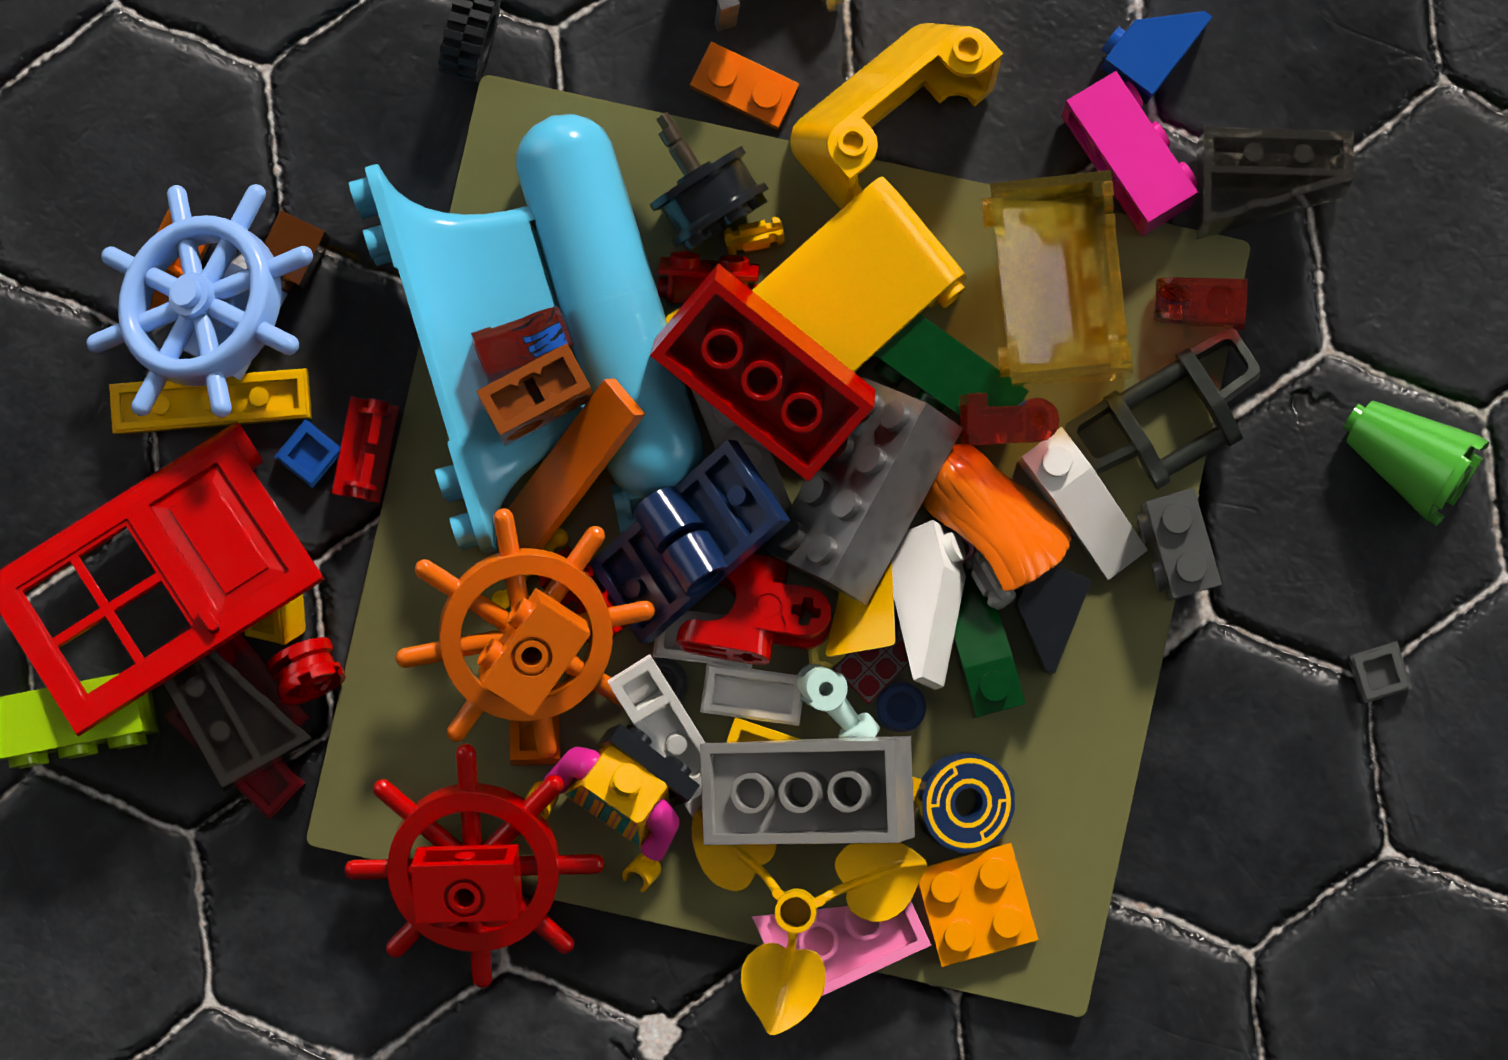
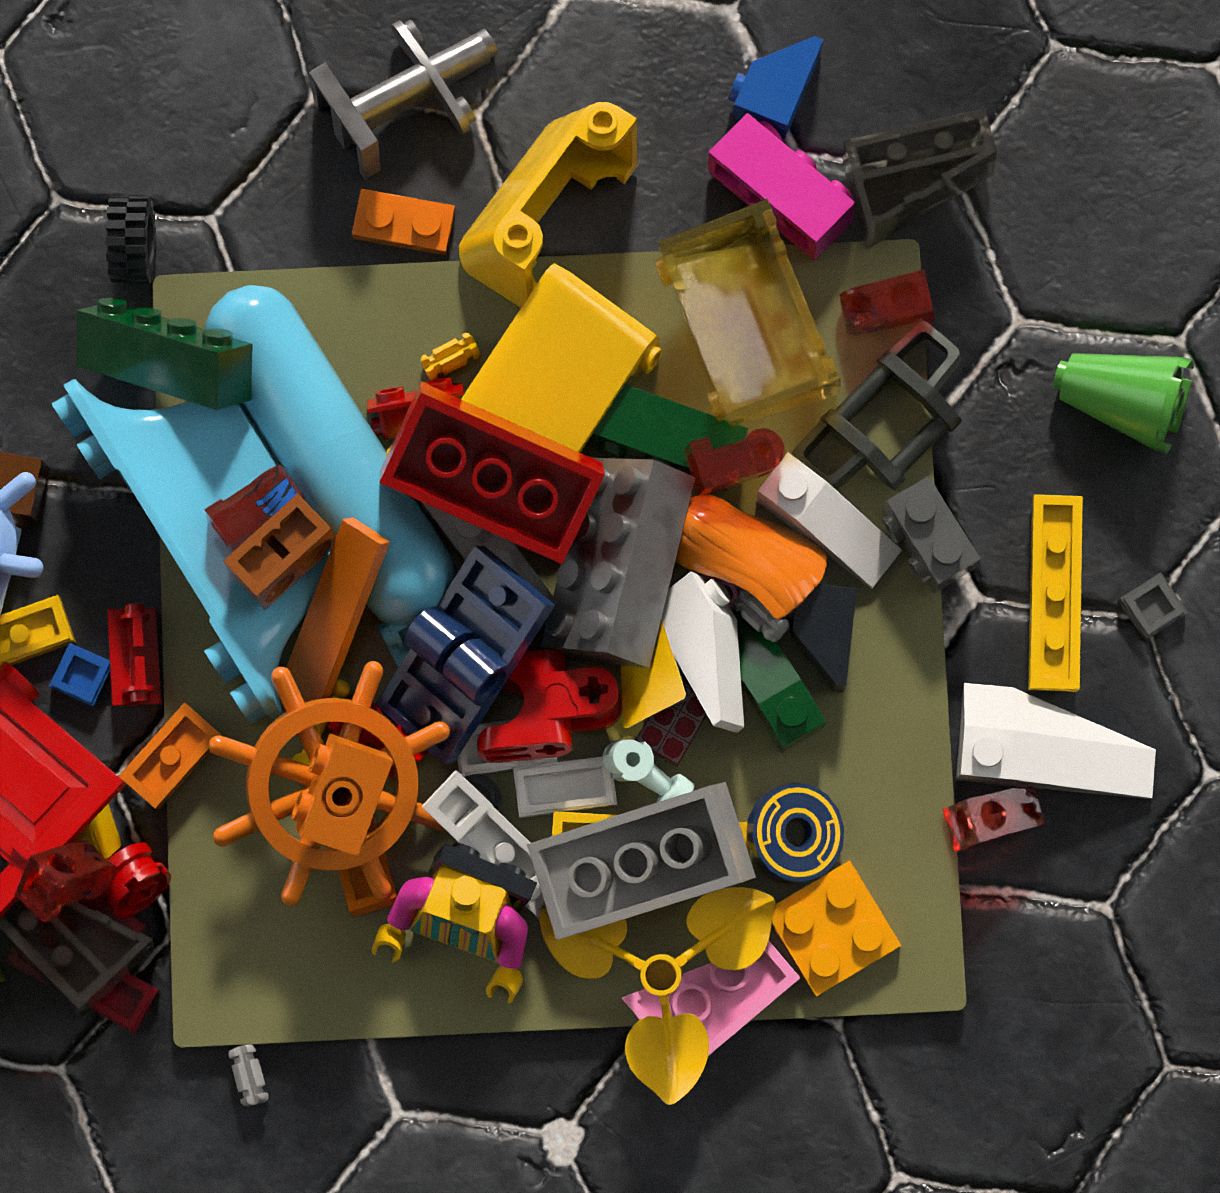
camera: 15 degrees left, 5 degrees down
(240, 656) = (63, 877): none -> clear red leg
(370, 897) = (248, 1075): none -> light grey piece
(375, 560) = (170, 756): none -> orange plate
(472, 161) = (164, 354): none -> dark green brick
(473, 889) = (344, 1031): red piece -> none
(708, 194) = (394, 325): black wheel -> none
(901, 707) = (709, 760): dark blue tile -> none
(1163, 839) = (992, 817): none -> clear red leg
(1227, 777) = (1029, 742): none -> white wedge
(1287, 633) = (1055, 593): none -> yellow plate

